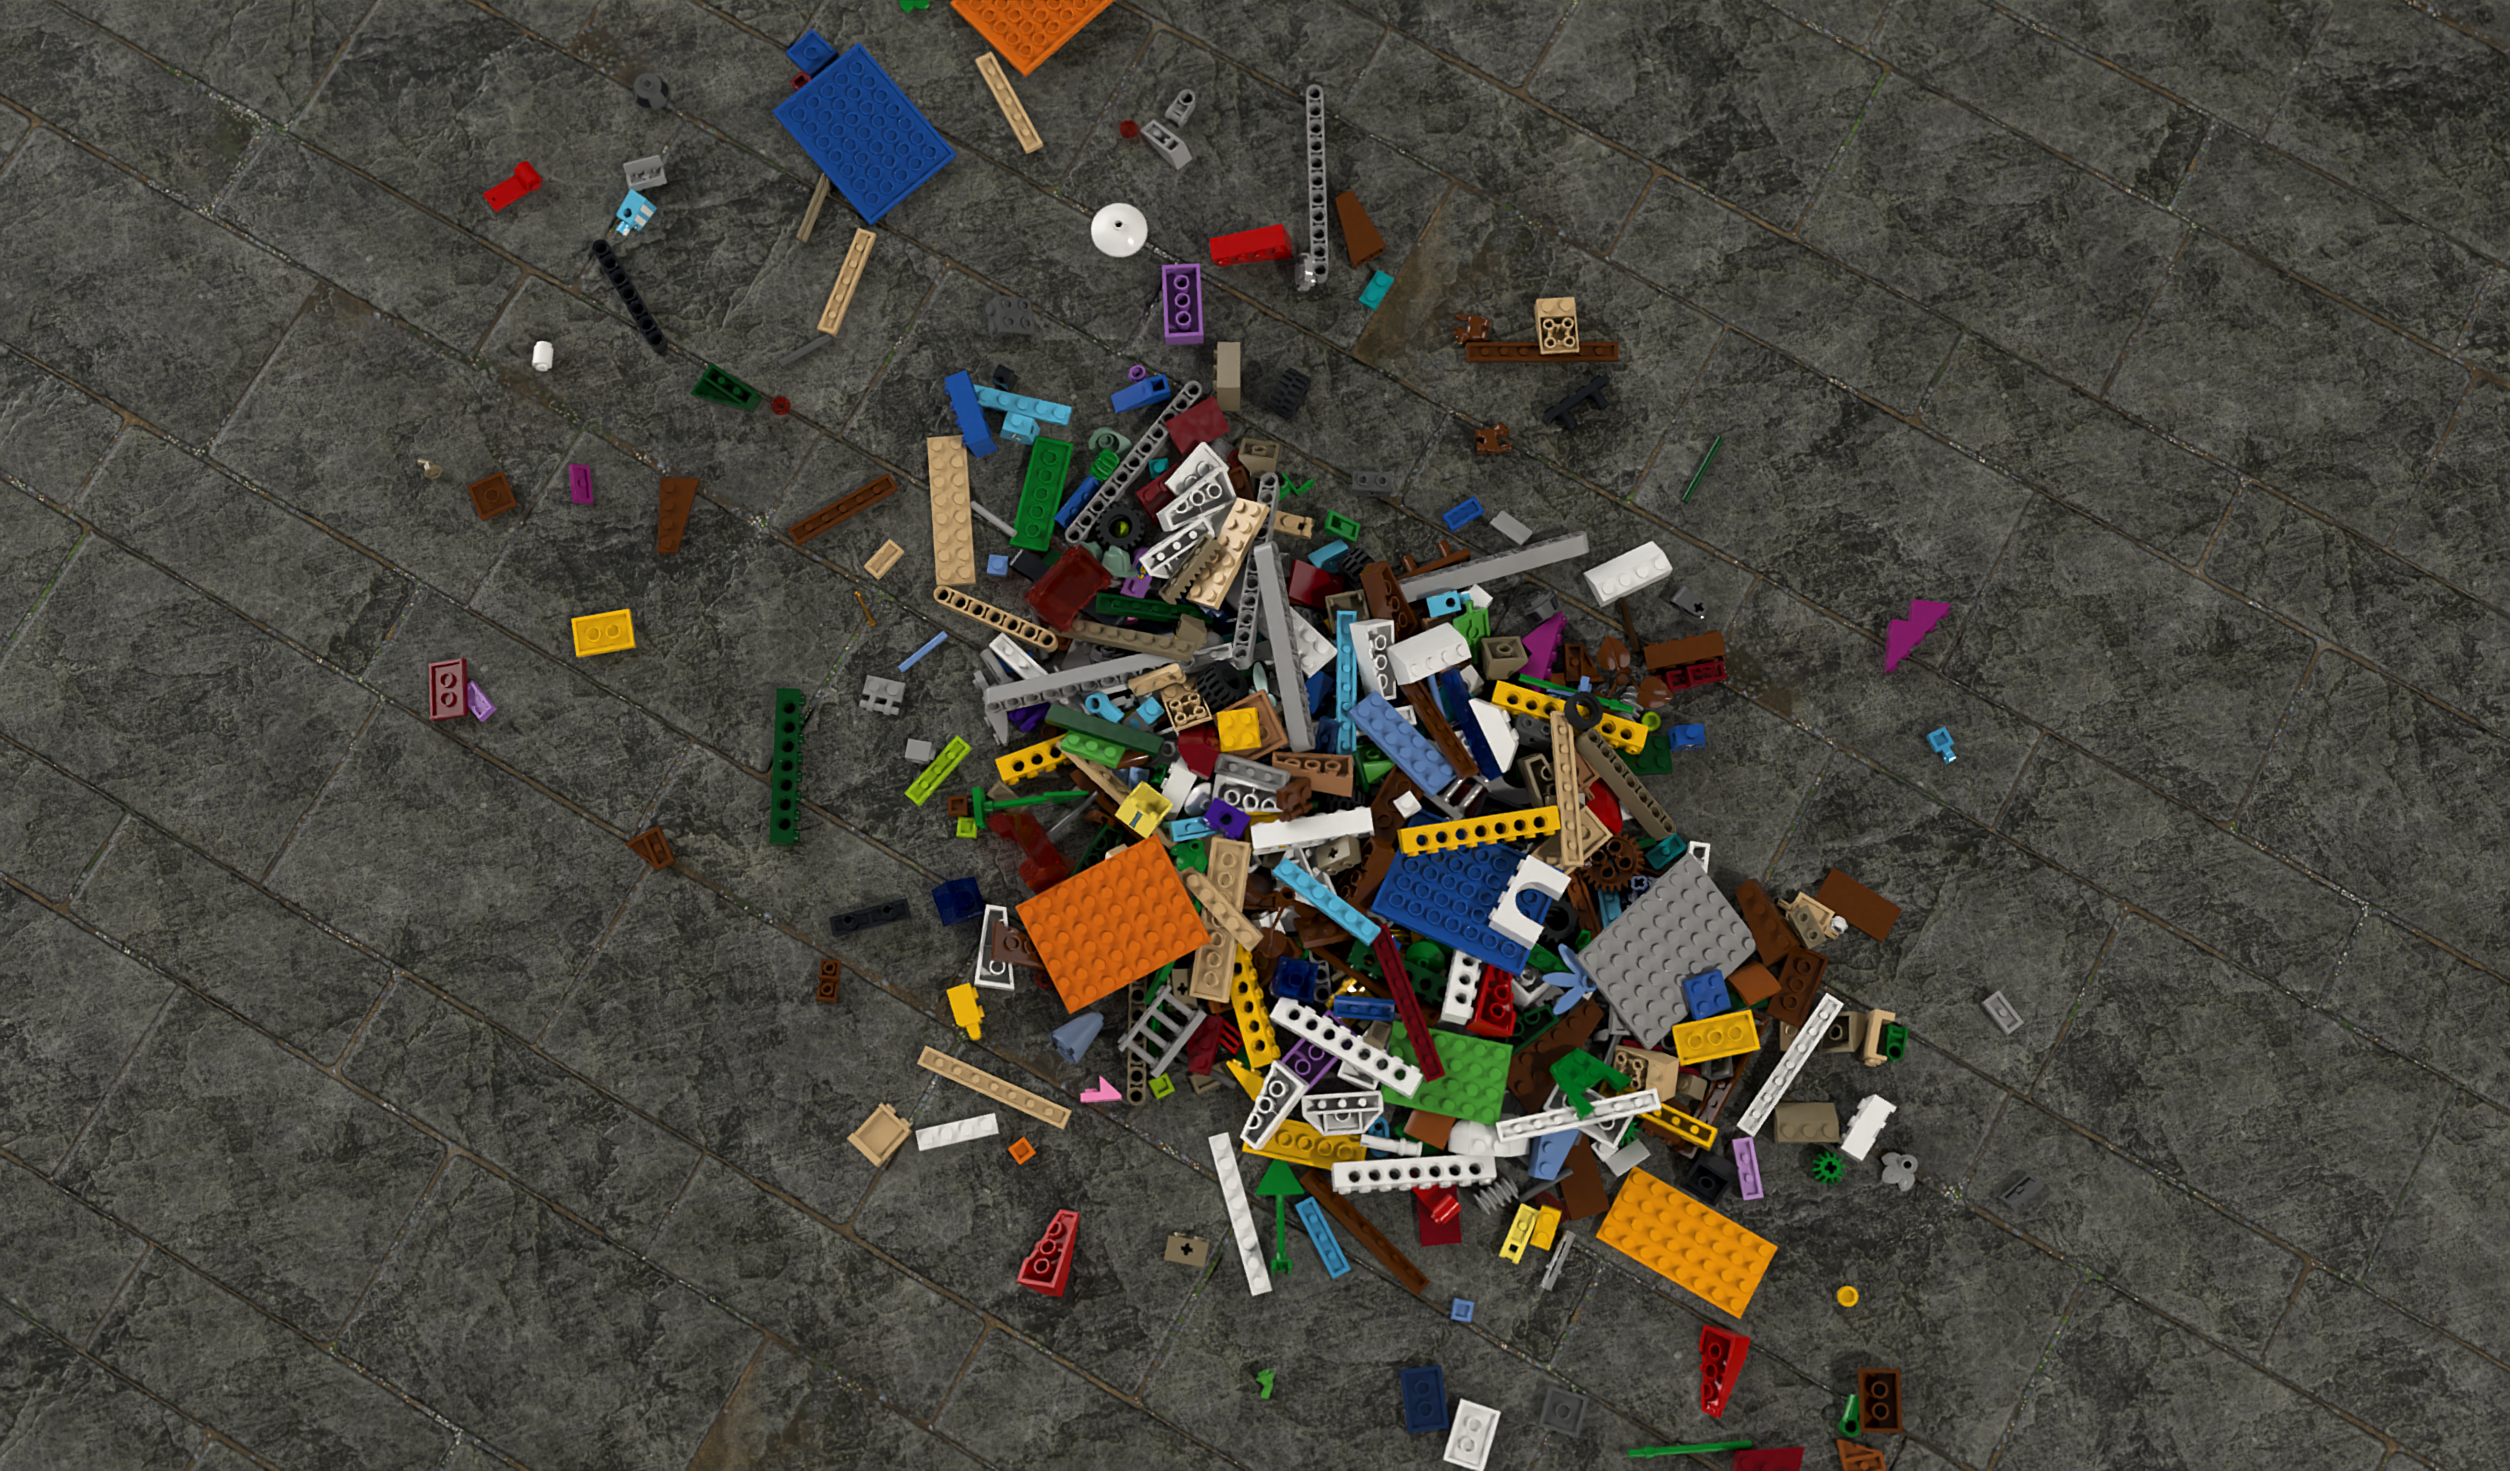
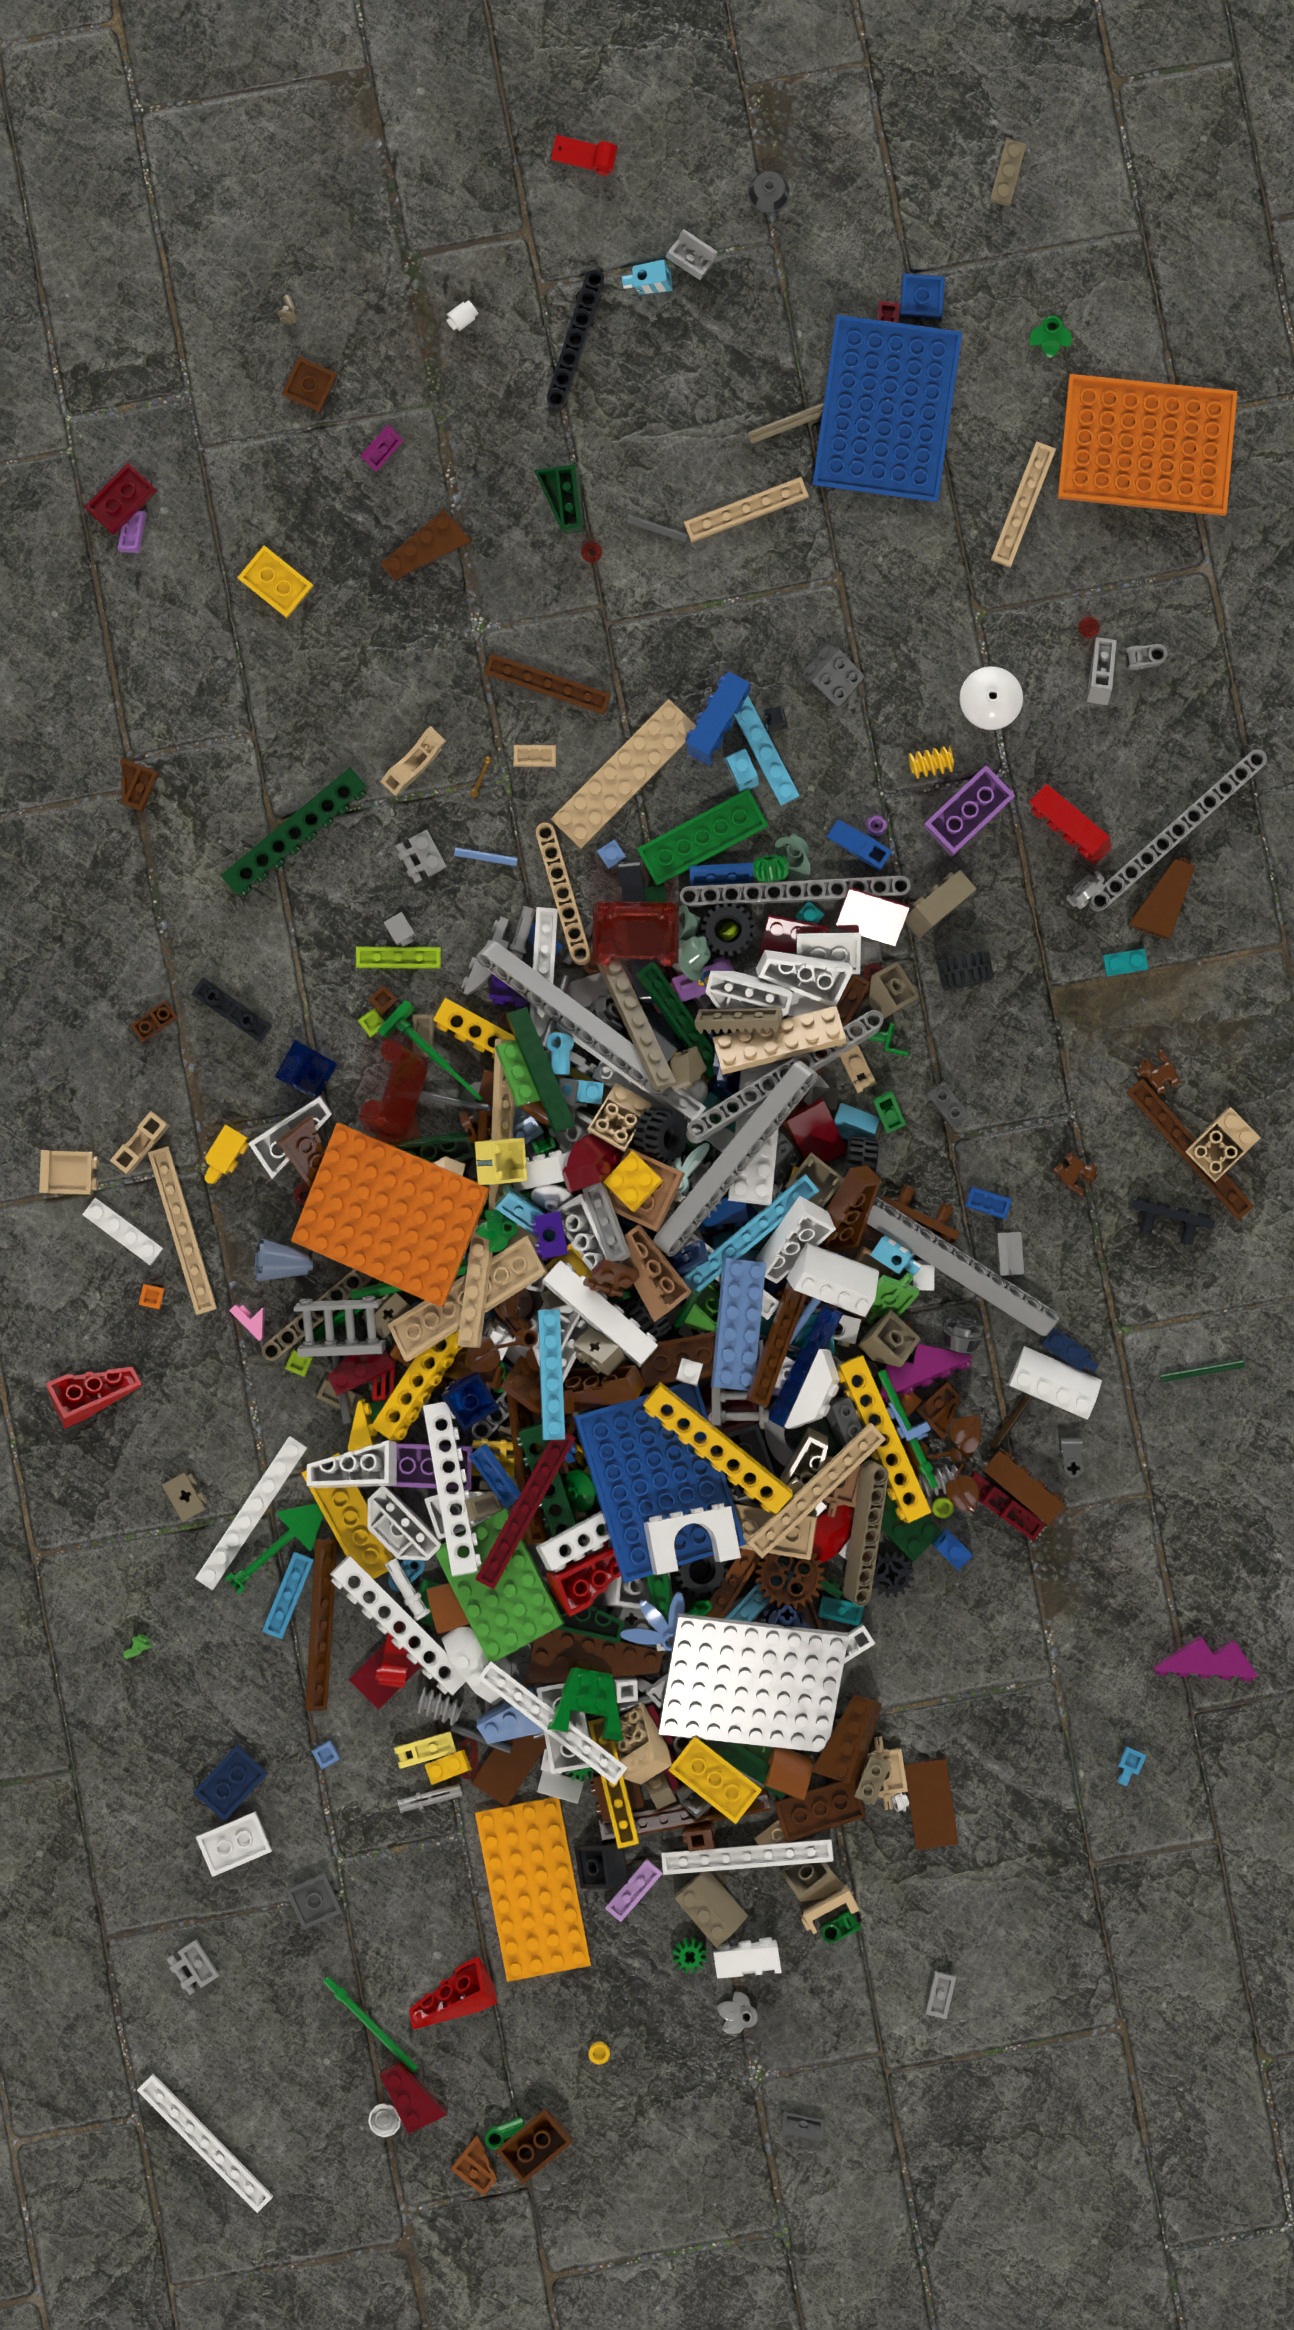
camera: 50 degrees right, 10 degrees up
(813, 641) = (414, 762): none -> tan arch
(906, 1063) = (140, 1144): none -> tan arch
(993, 519) = (646, 816): light grey bar -> none
(1126, 301) = (931, 762): none -> yellow piece
(1157, 679) = (621, 1075): tan plate -> none
(1592, 704) = (907, 1454): black tyre -> none
(1596, 1047) = (625, 1688): none -> white brick
(1613, 545) = (1068, 1350): none -> dark blue hinge
(1675, 799) = (901, 1572): none -> black gear
(1707, 994) = (745, 1744): blue plate -> none
(1752, 1088) = (700, 1837): none -> reddish brown brick

